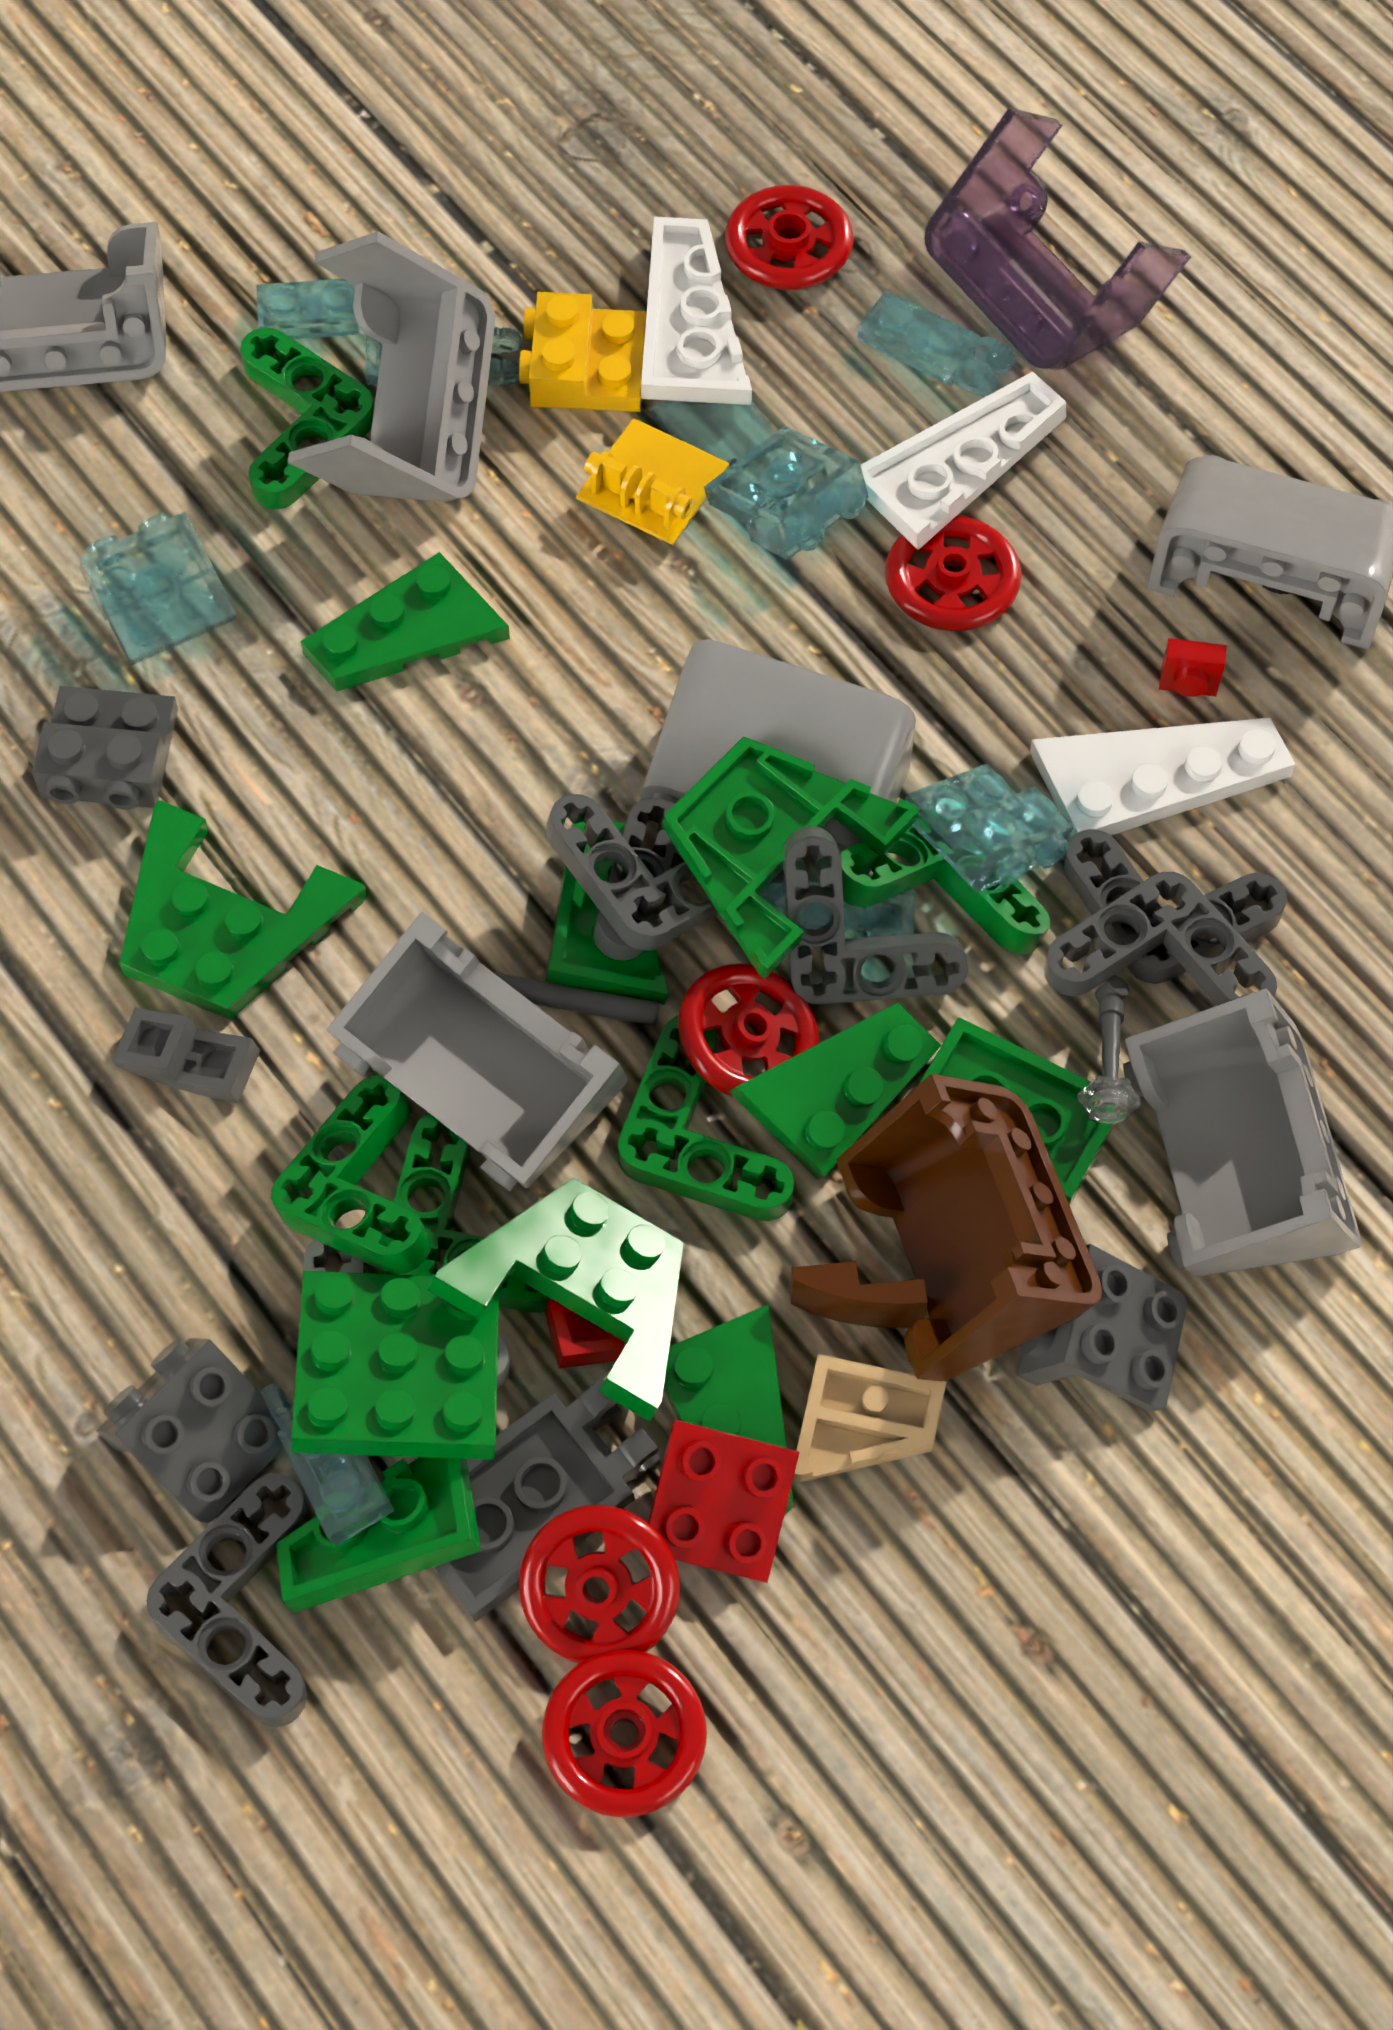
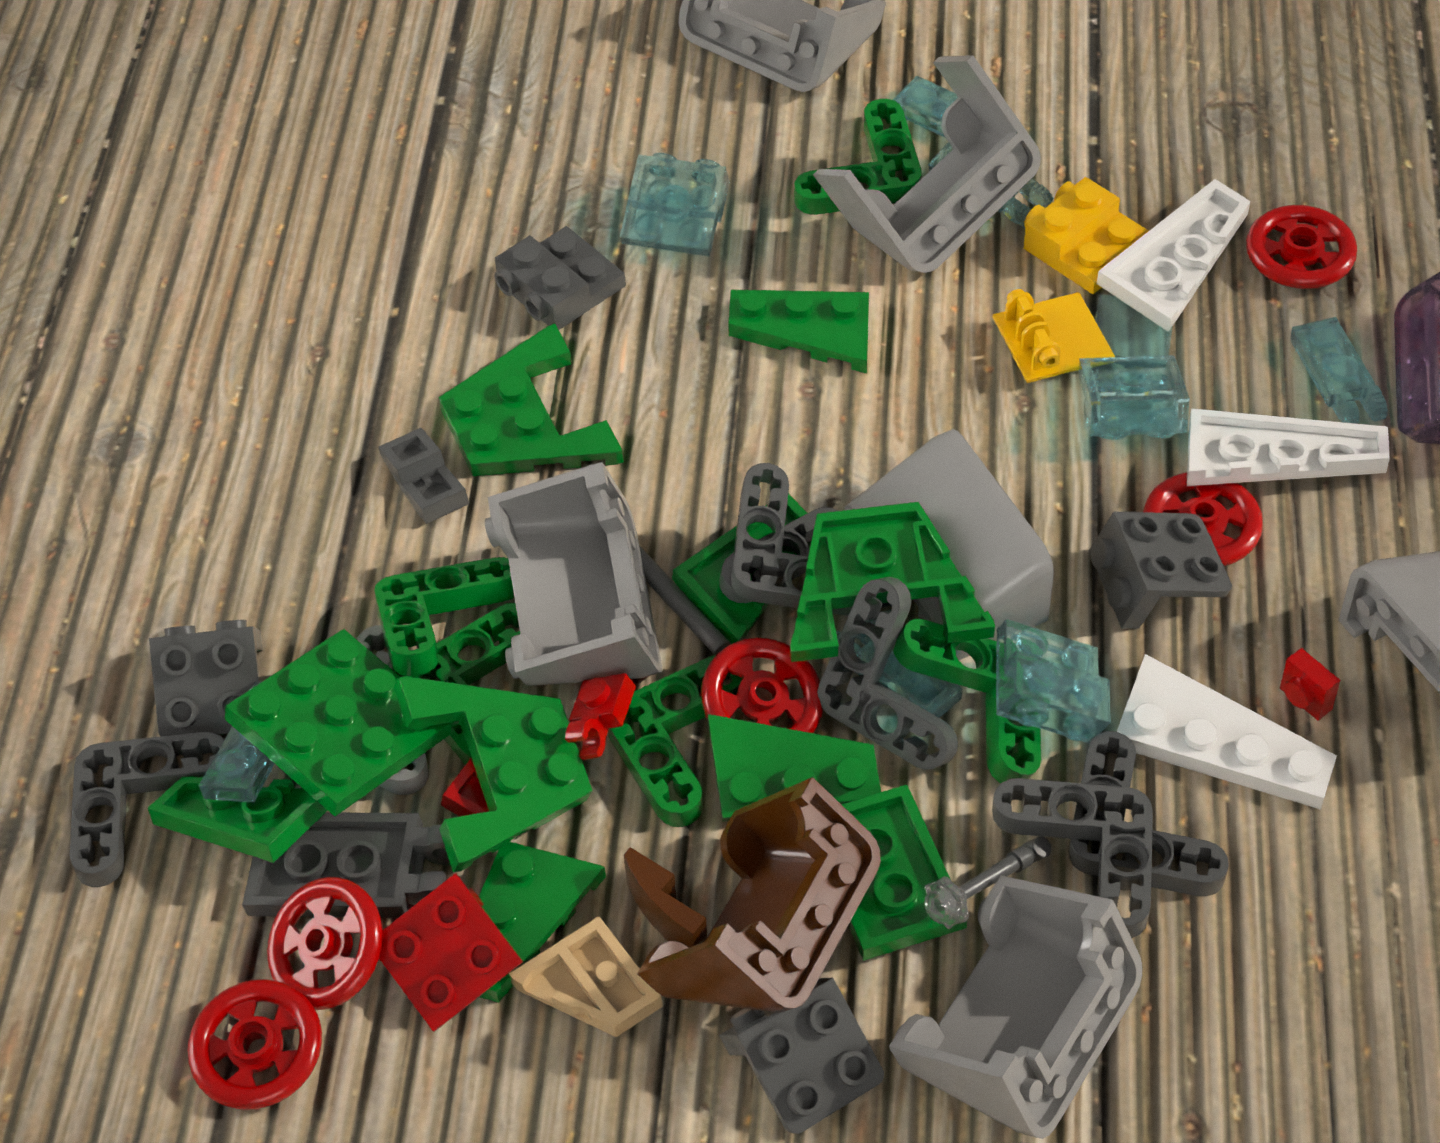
camera: 45 degrees right, 10 degrees down
(616, 1161) = (599, 706): none -> red plate
(964, 647) = (1155, 557): none -> dark grey bracket

